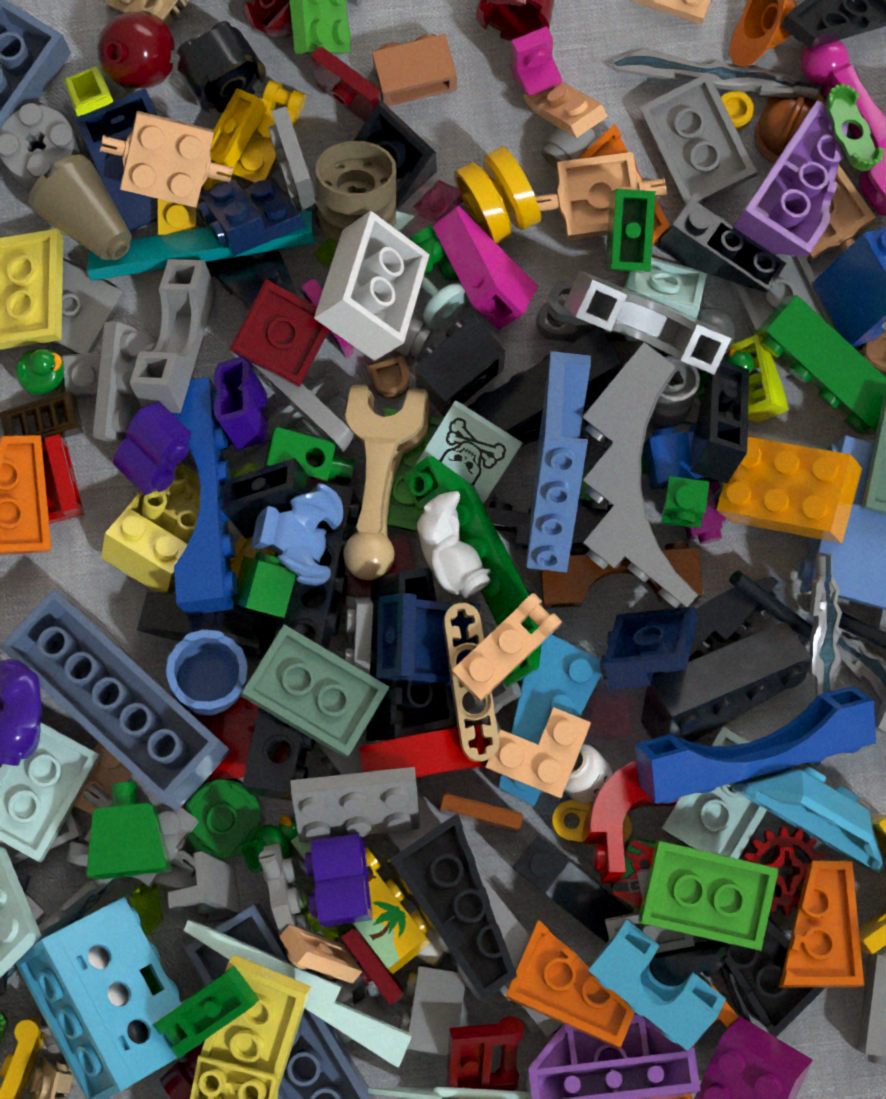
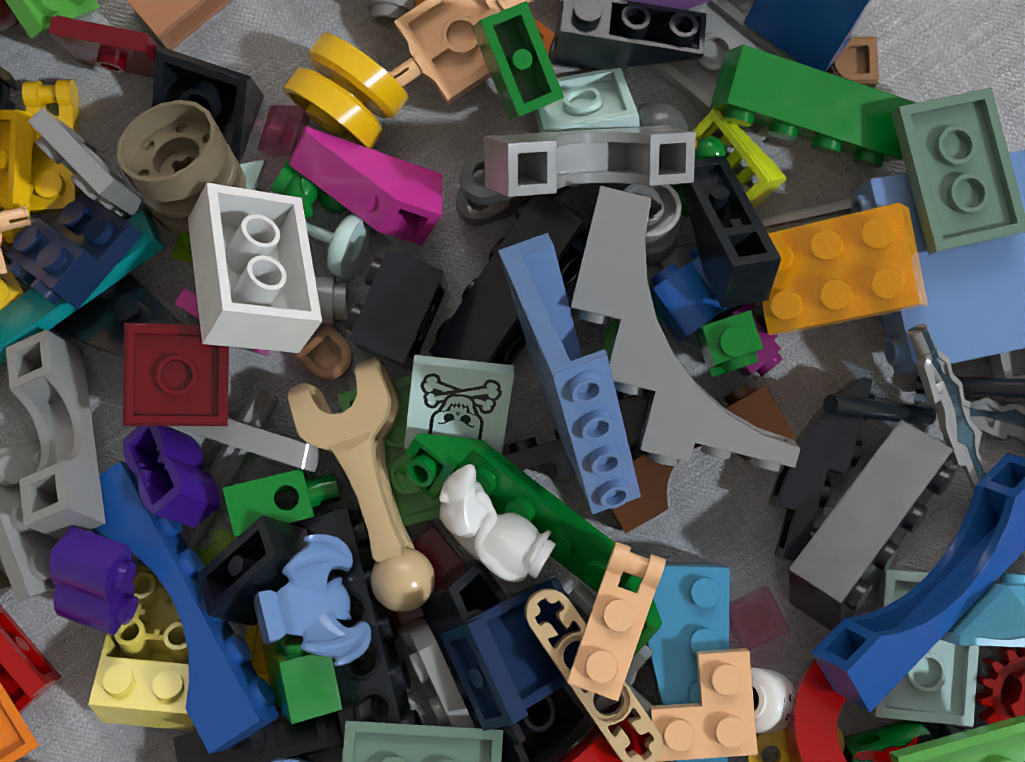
camera: 25 degrees left, 5 degrees up
(646, 645) = (770, 530): dark blue plate -> none

